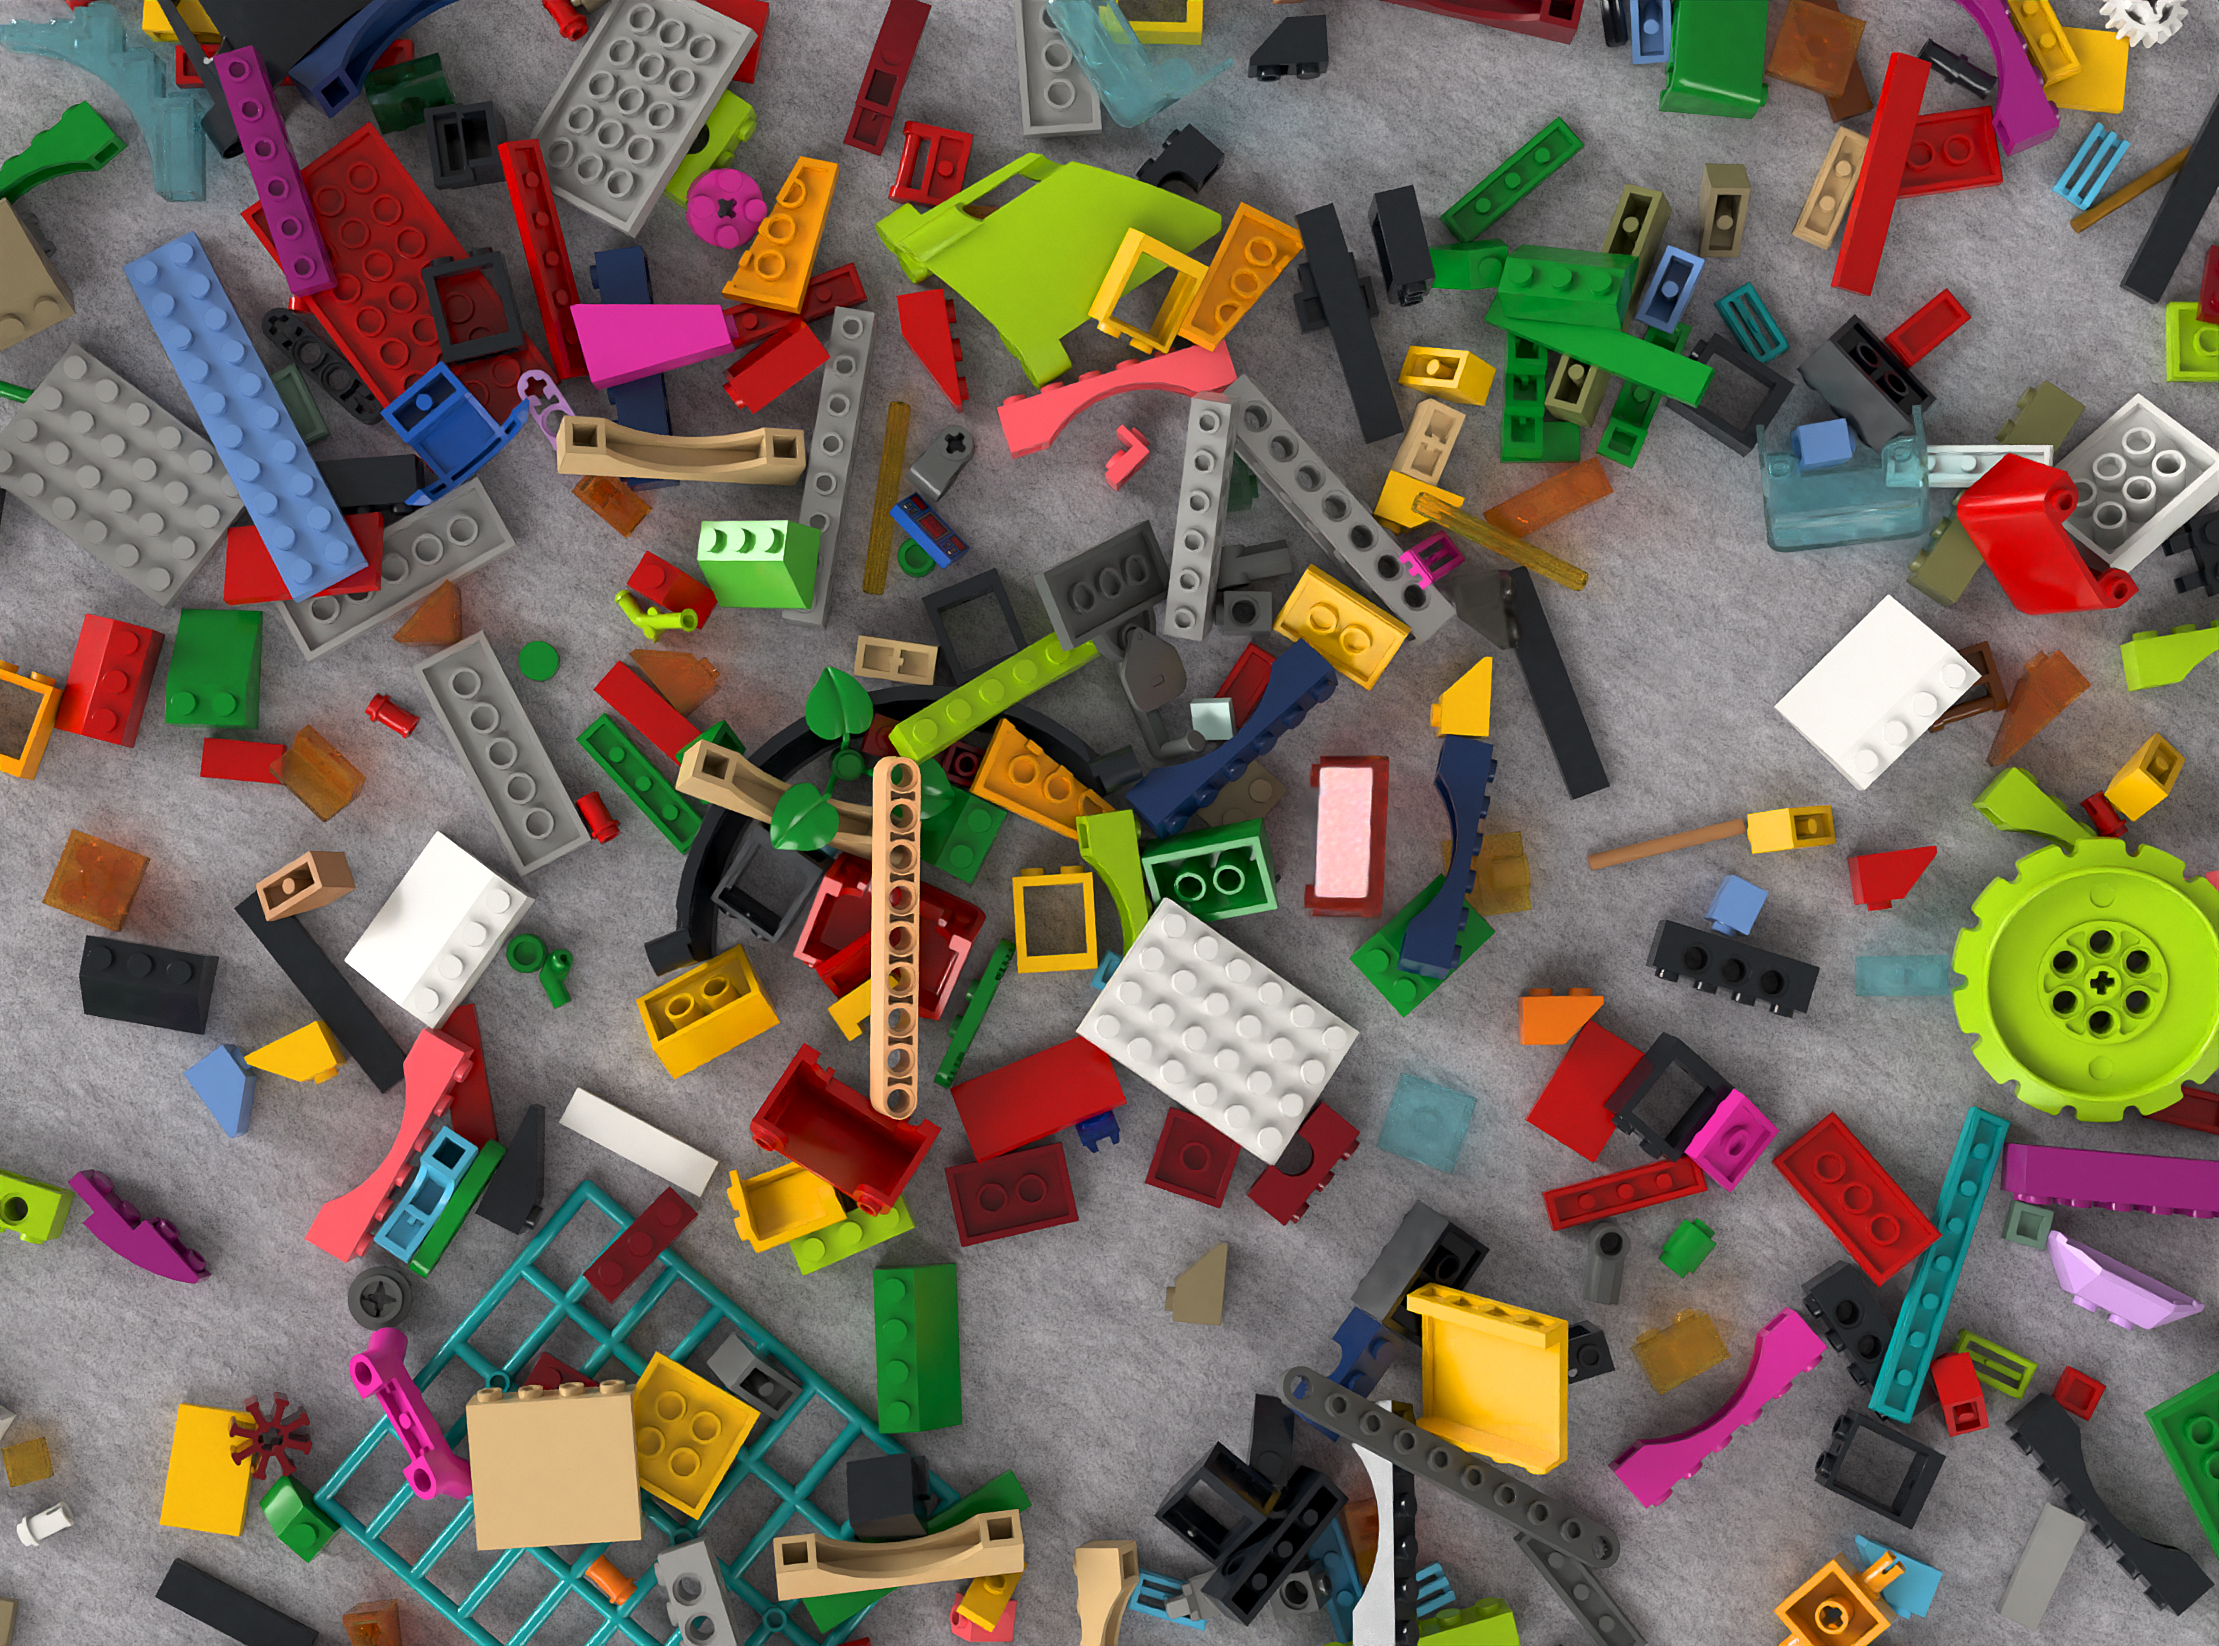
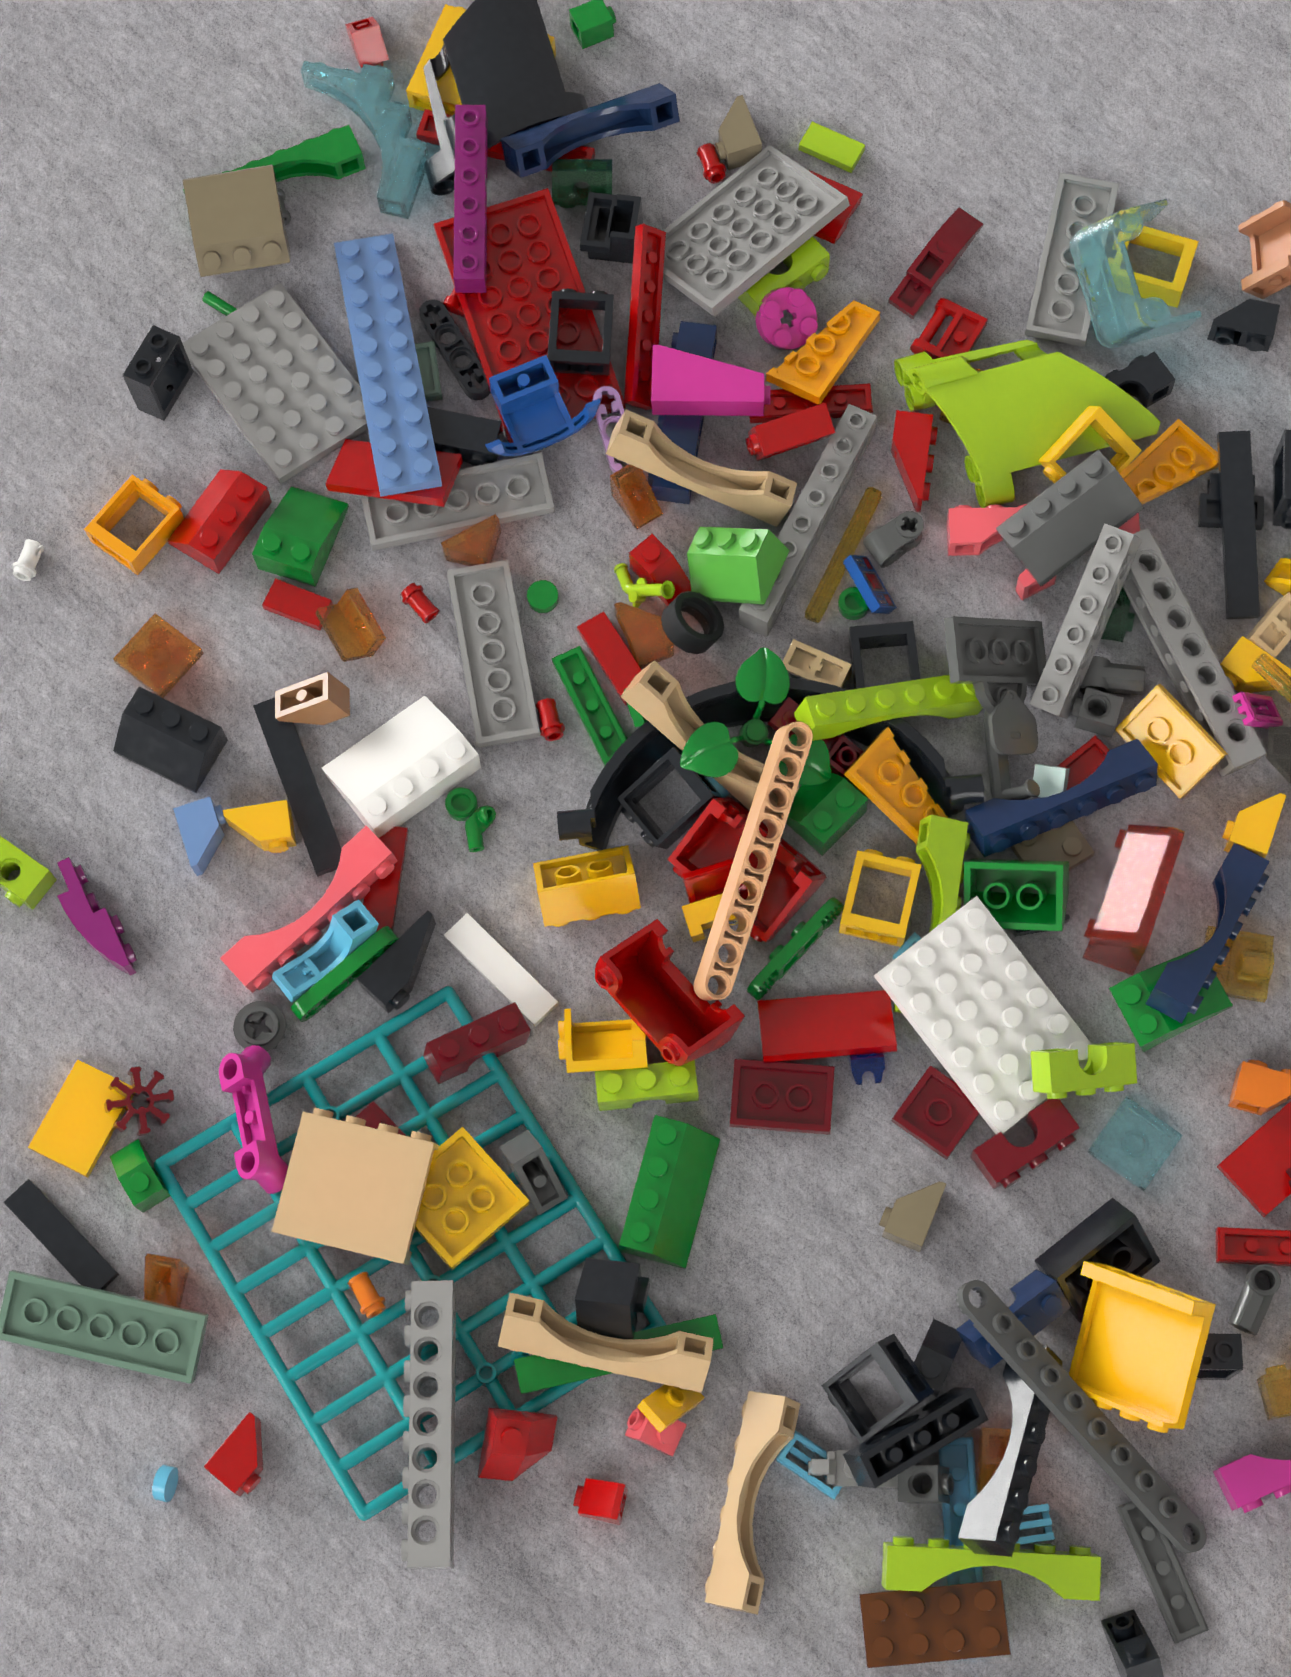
camera: 25 degrees right, 15 degrees down
(718, 668) = (703, 611): none -> black tyre
(1146, 387) = (1069, 517): none -> dark grey slope
(1373, 1053) = (1059, 1070): none -> lime arch

